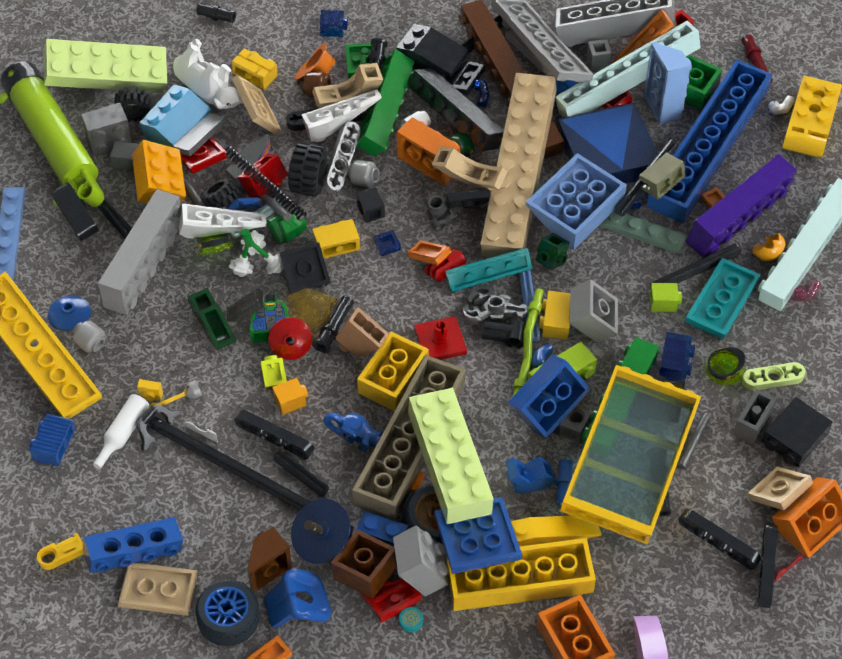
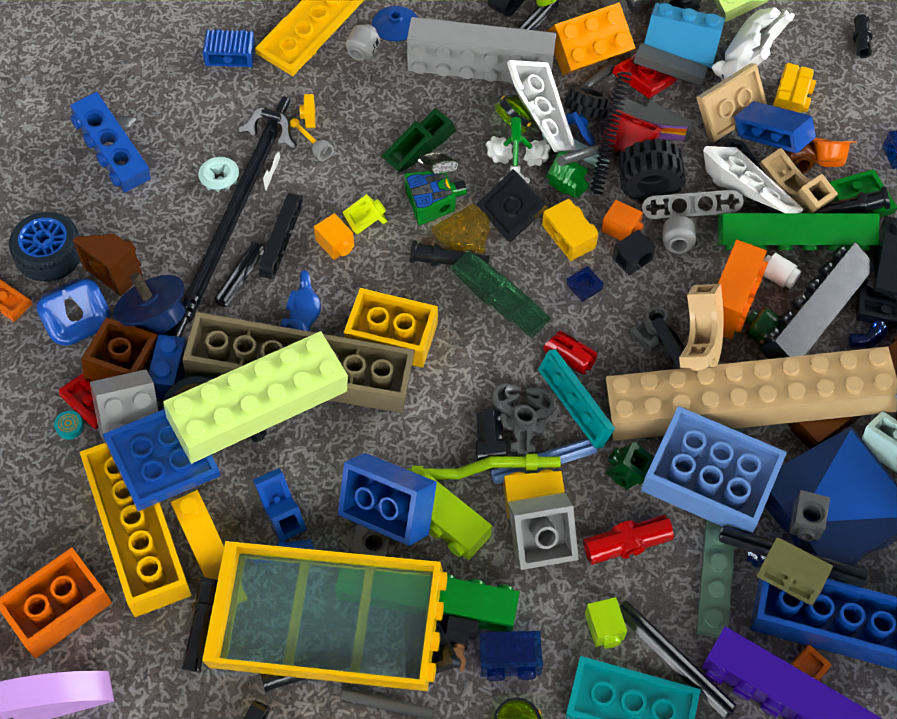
camera: 75 degrees right, 5 degrees up
(63, 552) = (107, 94): yellow piece -> none
(122, 427) = (251, 98): white piece -> none
(158, 588) = (74, 183): tan tile -> none
(190, 463) = (218, 165): none -> light aqua gear
(292, 85) = (775, 126): none -> blue brick
(292, 328) = (409, 216): red dish -> none
(340, 204) = (622, 220): none -> orange brick
(361, 334) = (425, 276): medium nougat torso -> none
(383, 294) = (500, 293): none -> clear green slope
(429, 252) = (581, 328): orange tile -> none
(441, 338) = (462, 372): red tile -> none
(539, 354) = (468, 485): blue arm -> none
(603, 538) = (199, 629): none -> black pin
(605, 266) = (628, 539): none -> red piece
(624, 157) = (814, 506): none -> dark grey brick

